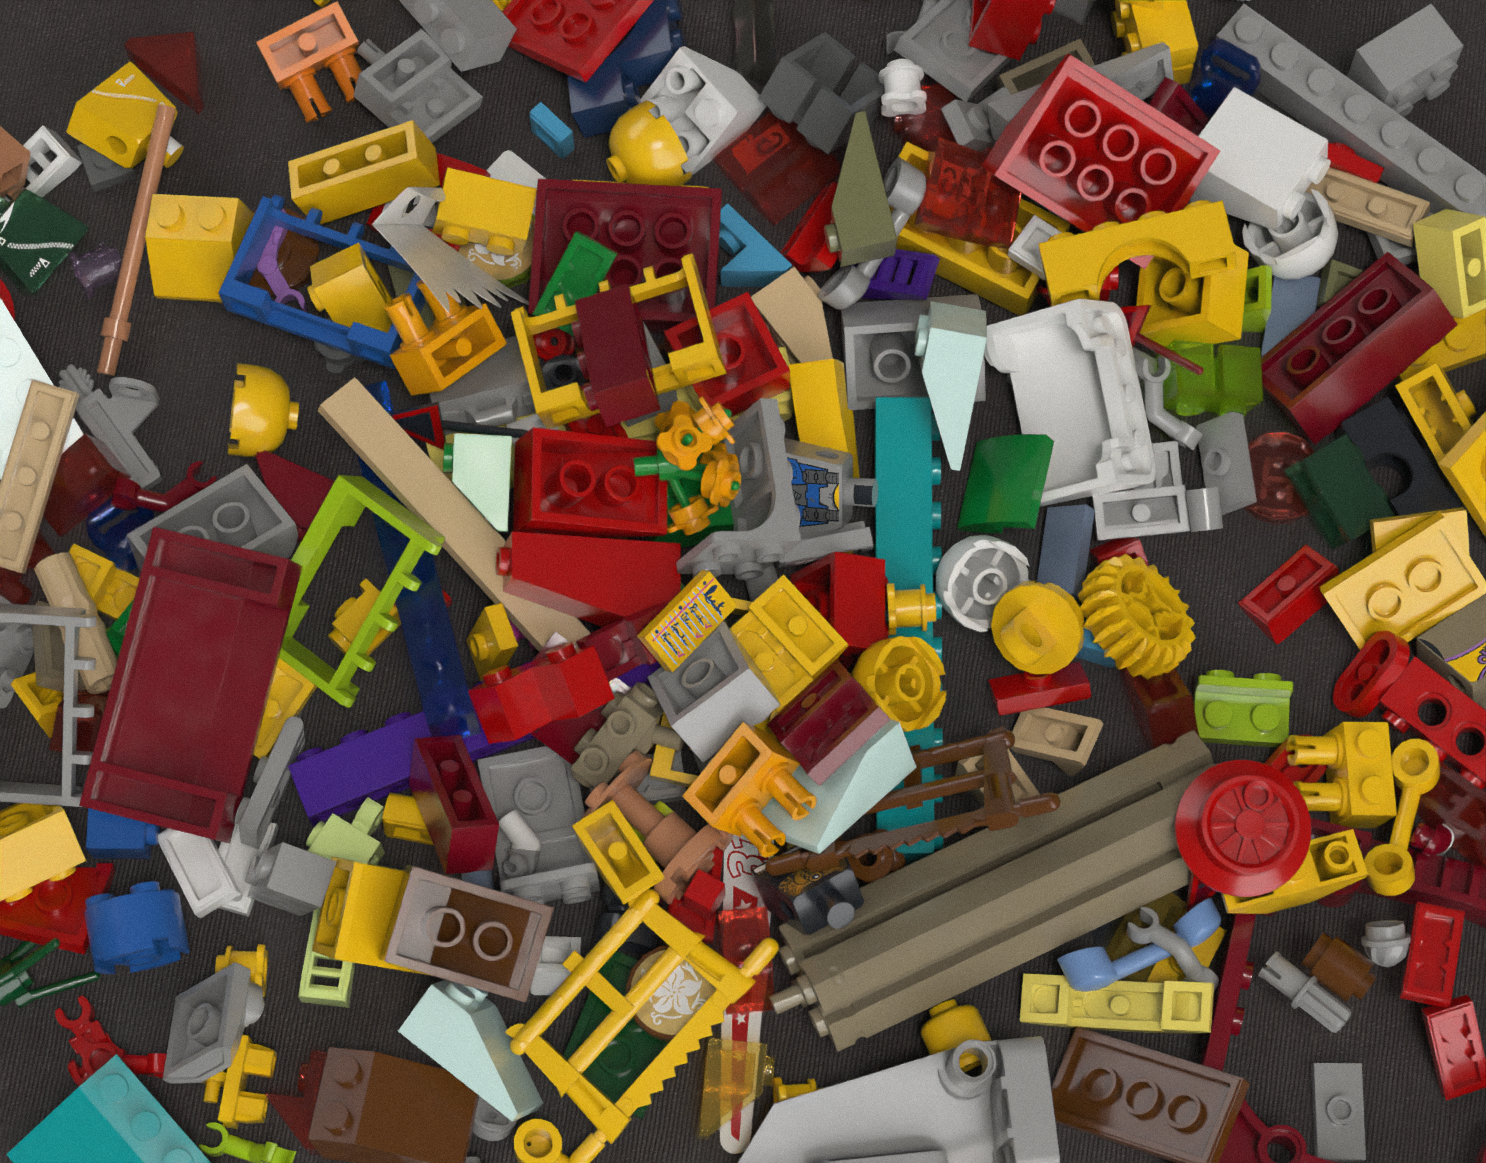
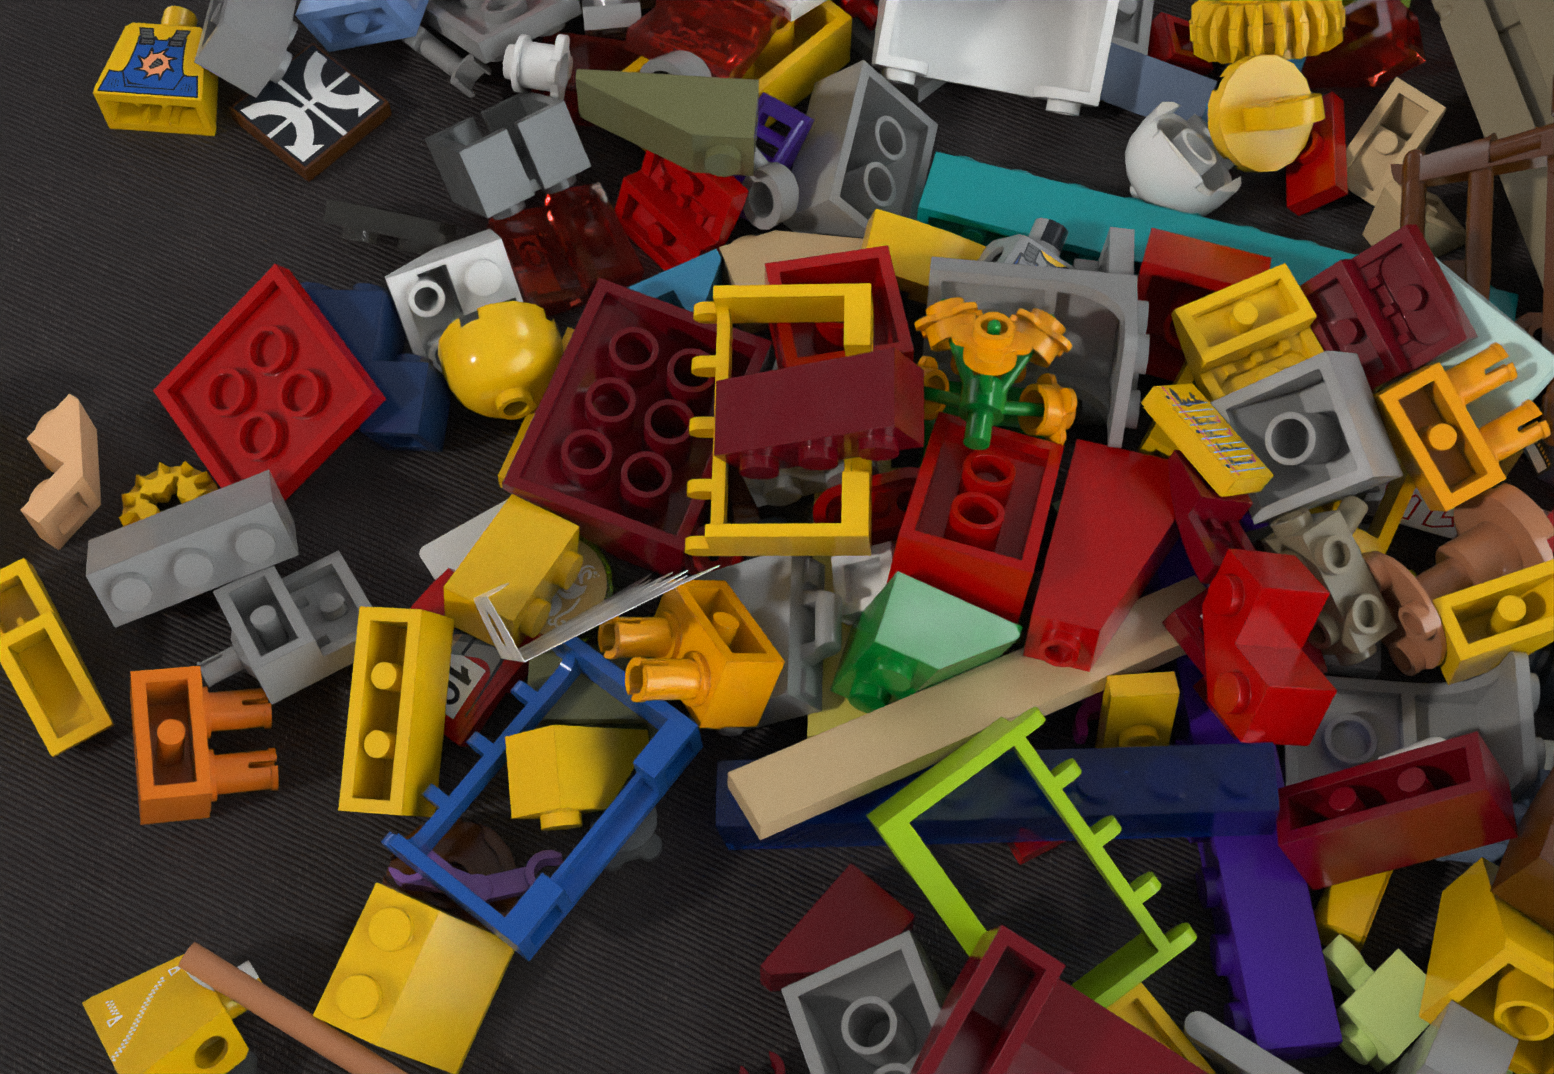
camera: 75 degrees left, 10 degrees down
(172, 63) = (110, 945): clear red slope -> none
(260, 411) = (699, 958): yellow cylinder -> none
(353, 614) = (1049, 895): yellow brick -> none
(427, 425) = (814, 704): black piece -> none
(551, 130) = (421, 479): dark azure tile -> none
(577, 274) = (663, 462): green plate -> none
(903, 680) = (1314, 242): yellow cylinder -> none
(909, 608) = (1216, 218): yellow brick -> none
(952, 356) = (937, 94): light aqua slope -> none
(1006, 483) = (1062, 112): green slope -> none

